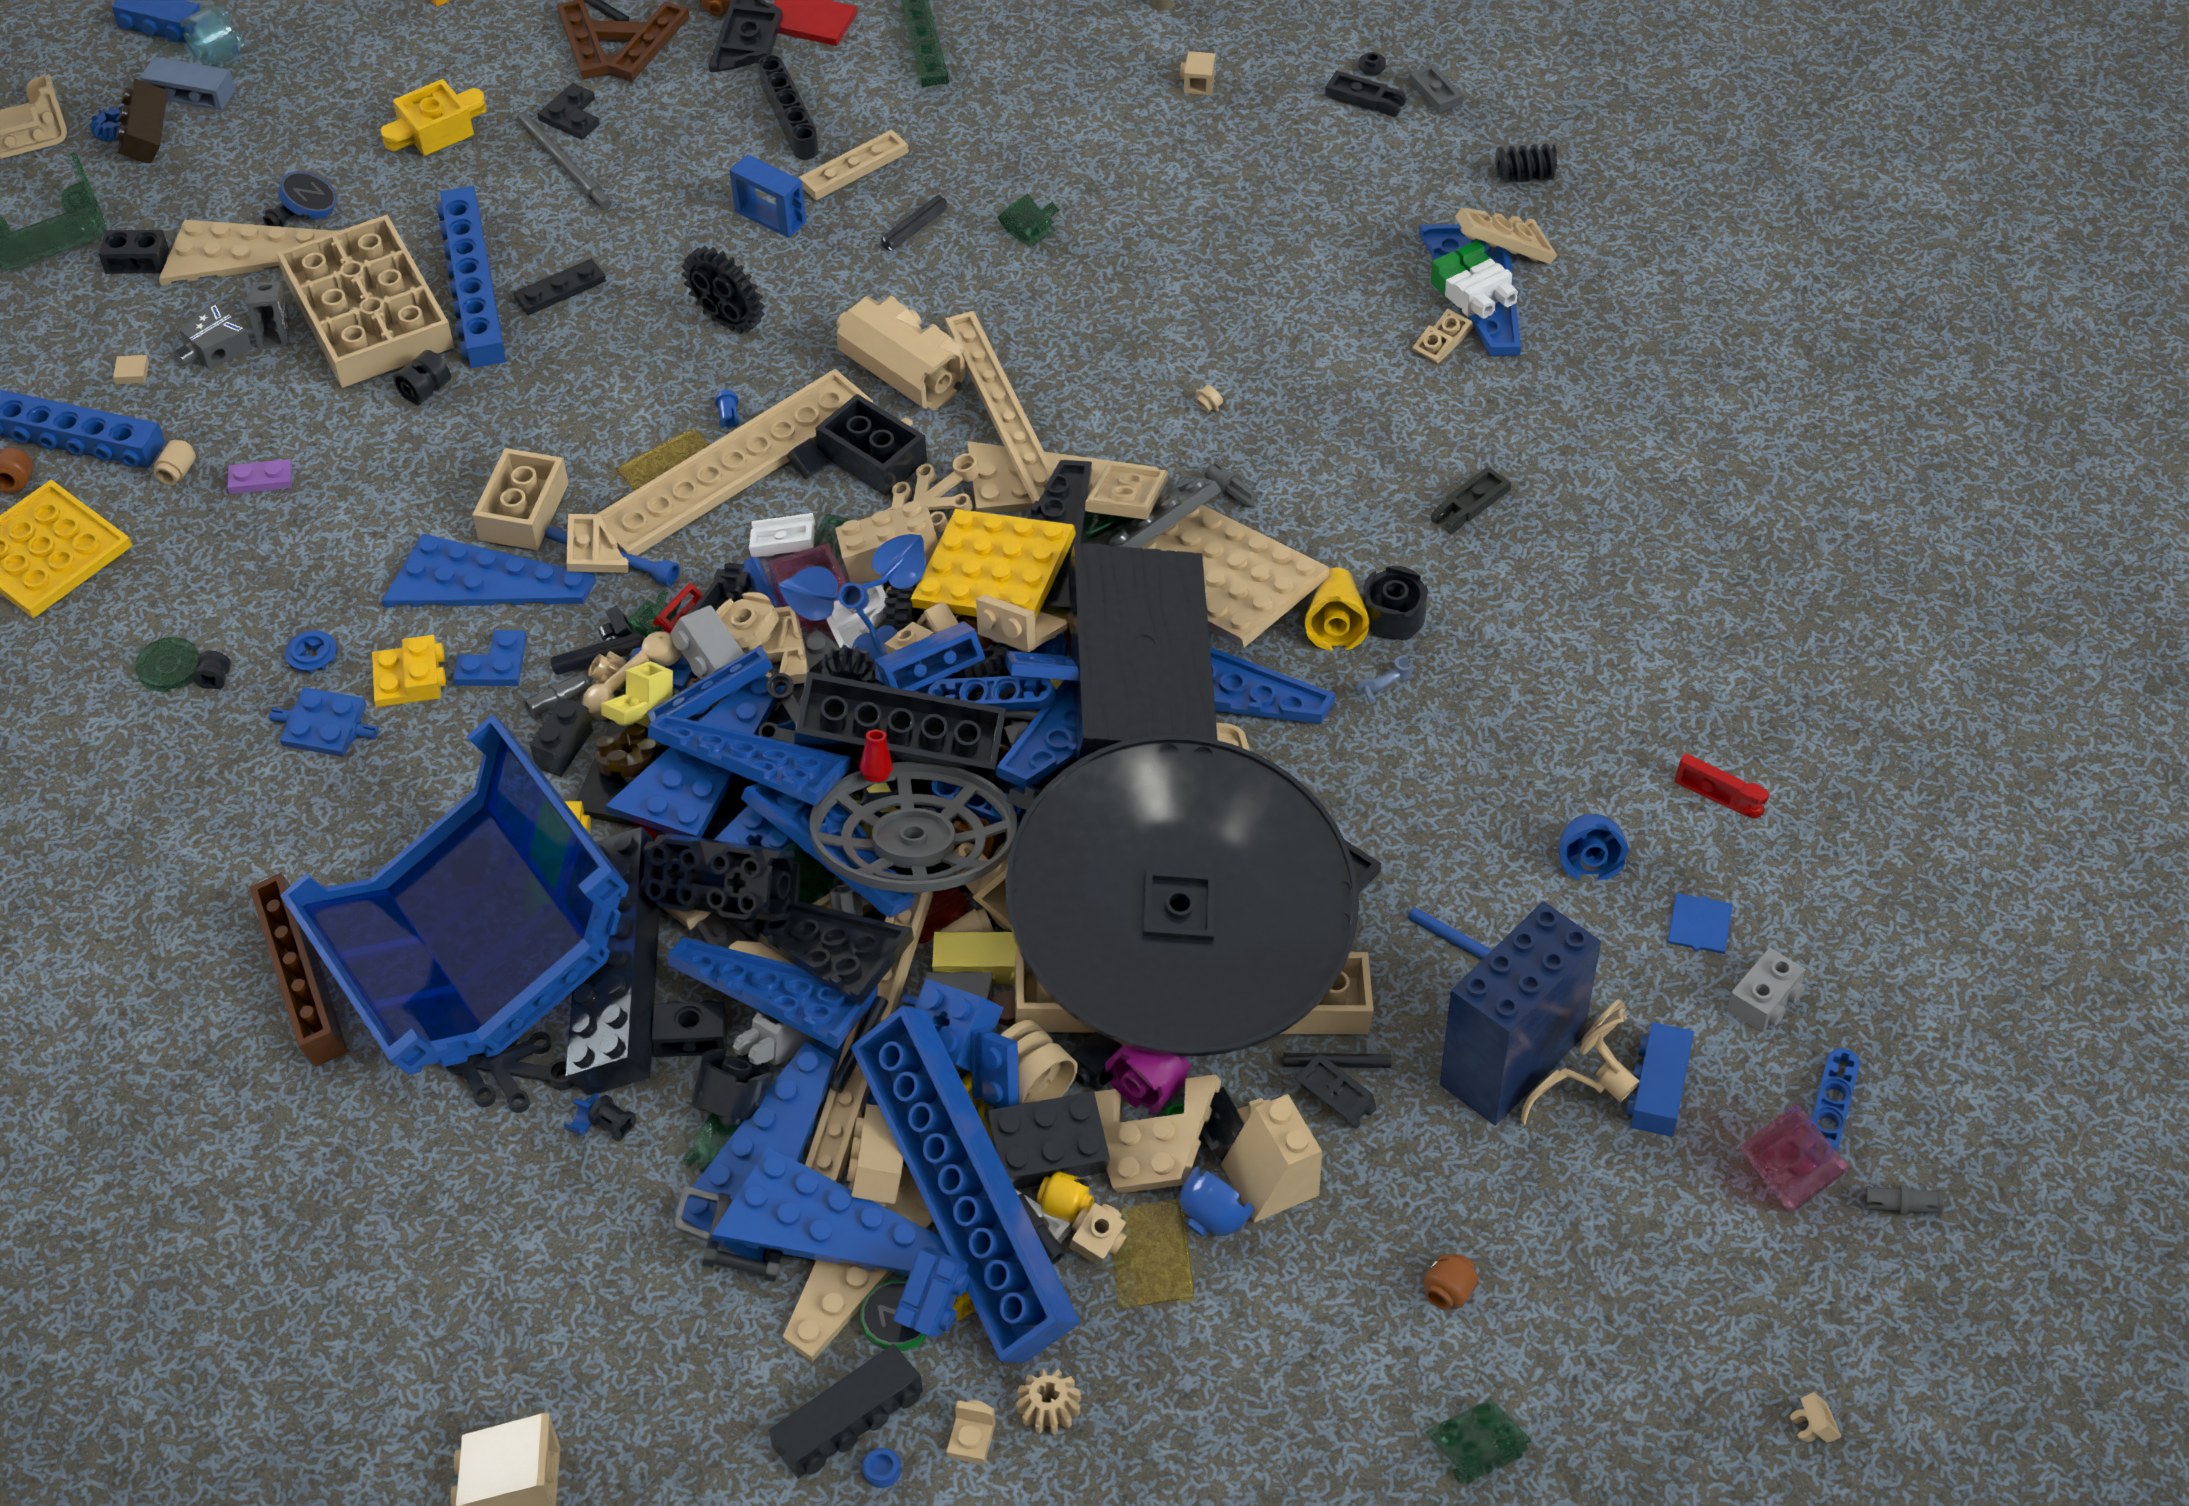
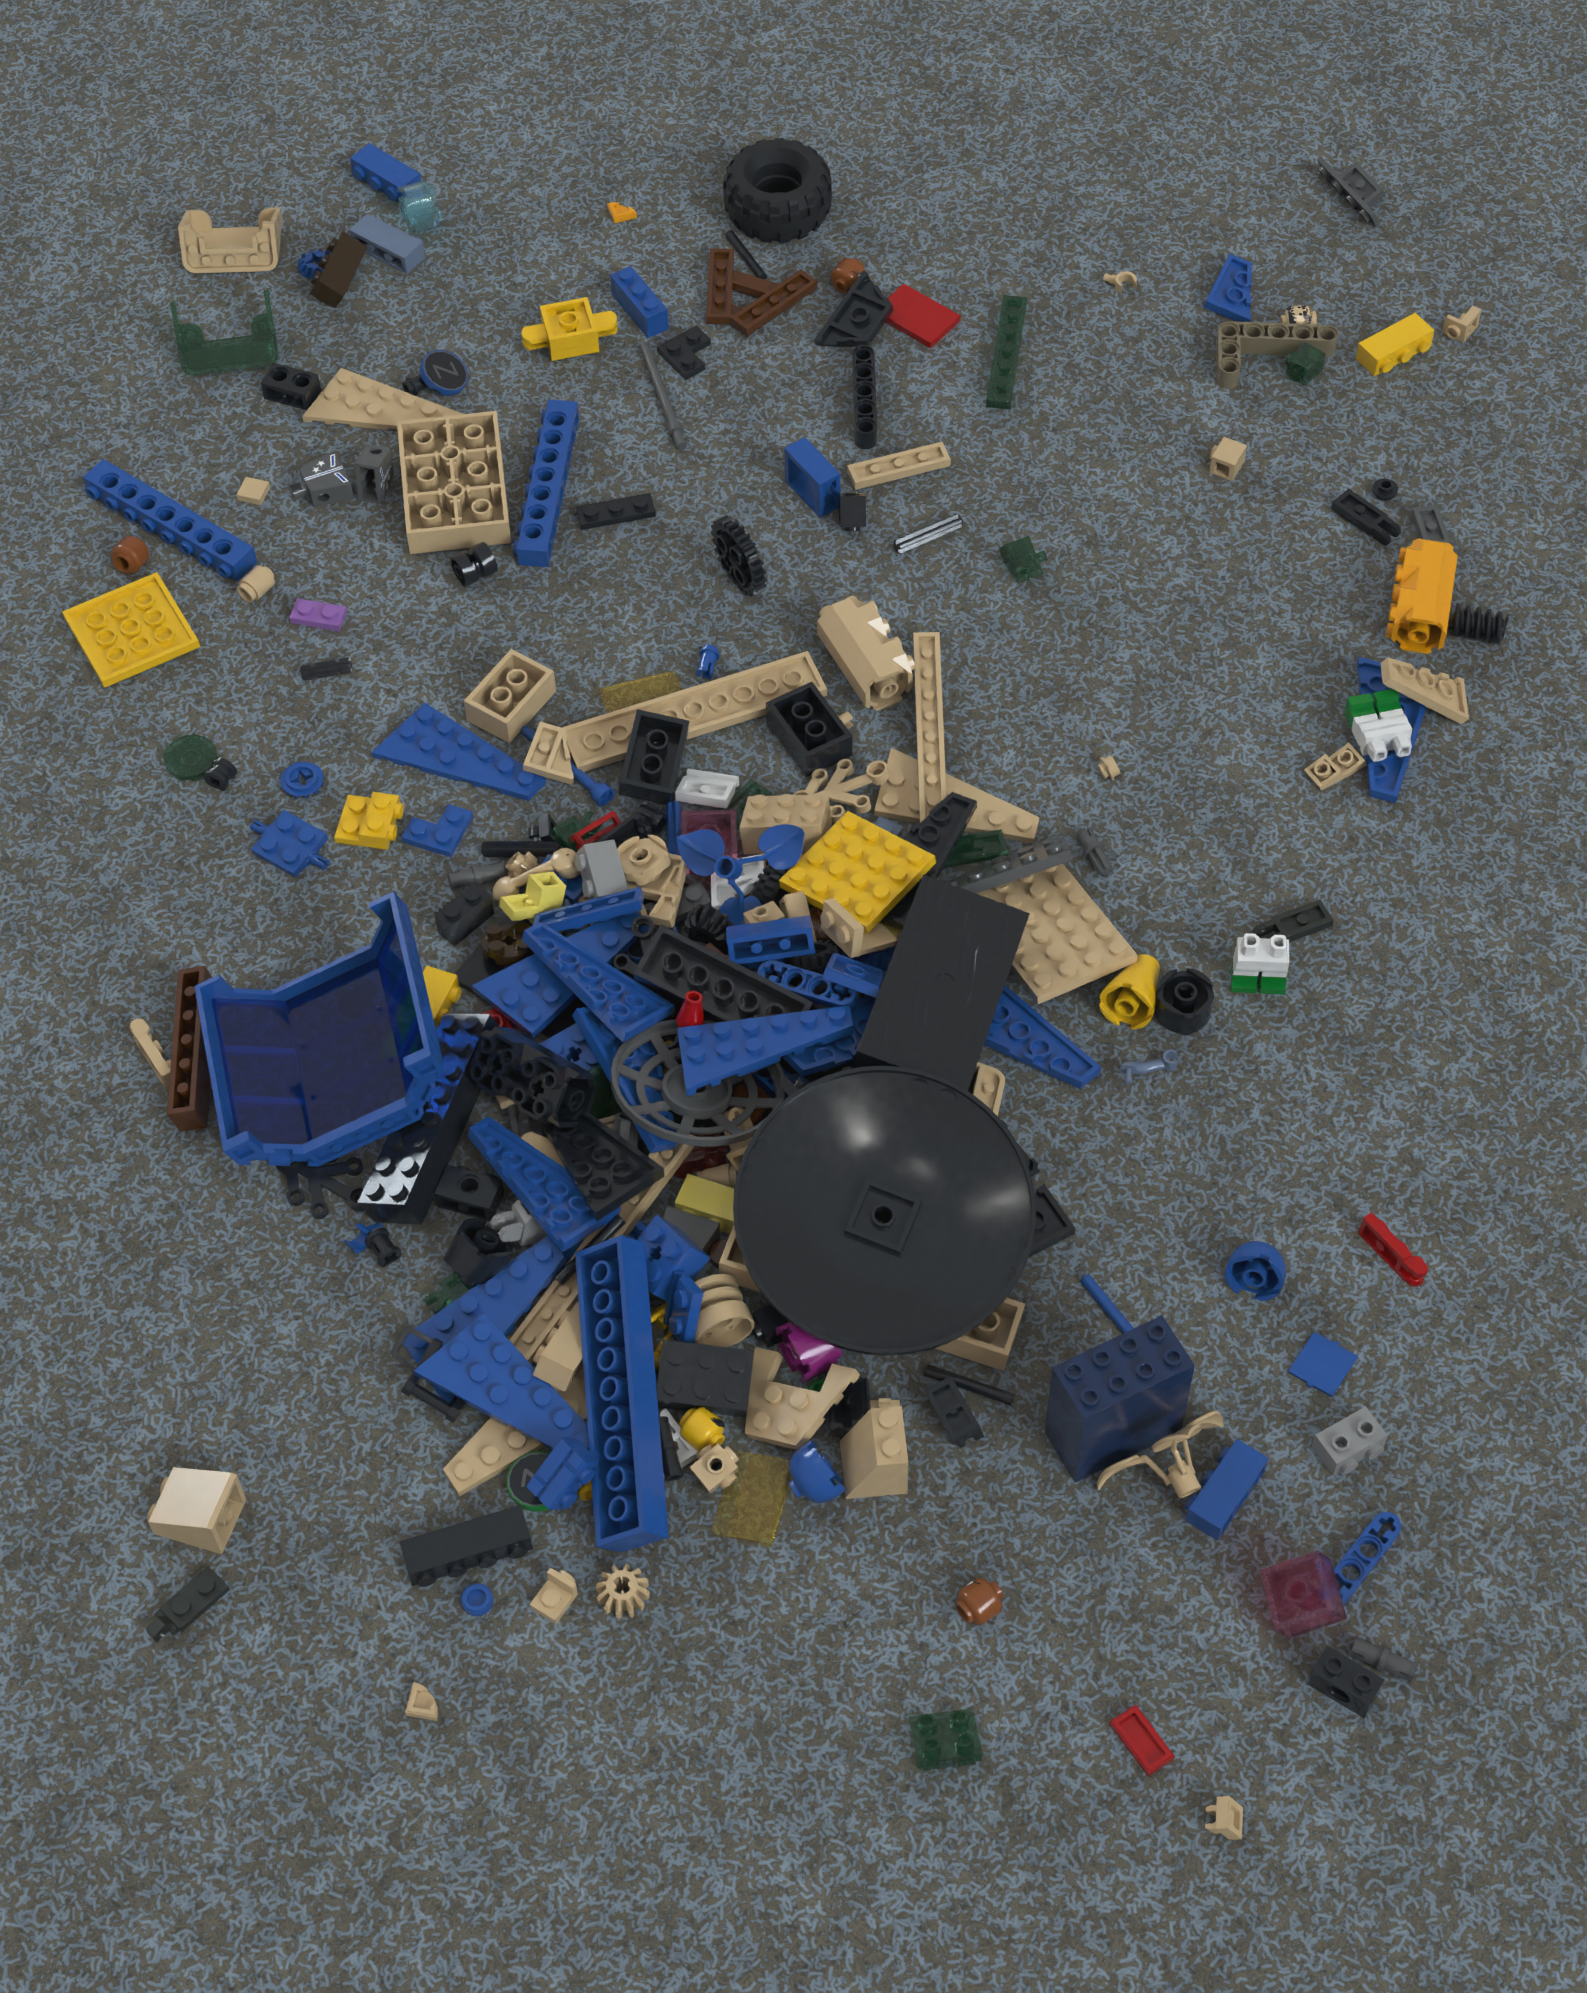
camera: 20 degrees right, 5 degrees up
(250, 990) = (151, 1050): none -> tan hinge
(292, 529) = (326, 669): none -> black axle
(500, 73) = (639, 301): none -> blue brick
(712, 516) = (653, 757): none -> black brick
(807, 458) = (754, 725): black slope -> none
(824, 219) = (852, 511): none -> black brick
(952, 773) = (751, 1044): none -> blue wing
(1126, 491) = (998, 835): tan tile -> none
(1458, 543) = (1261, 957): none -> white hips
(1461, 150) = (1422, 596): none -> light orange brick
(1689, 1369) = (1141, 1740): none -> red tile
(1877, 1234) = (1345, 1682): none -> black brick

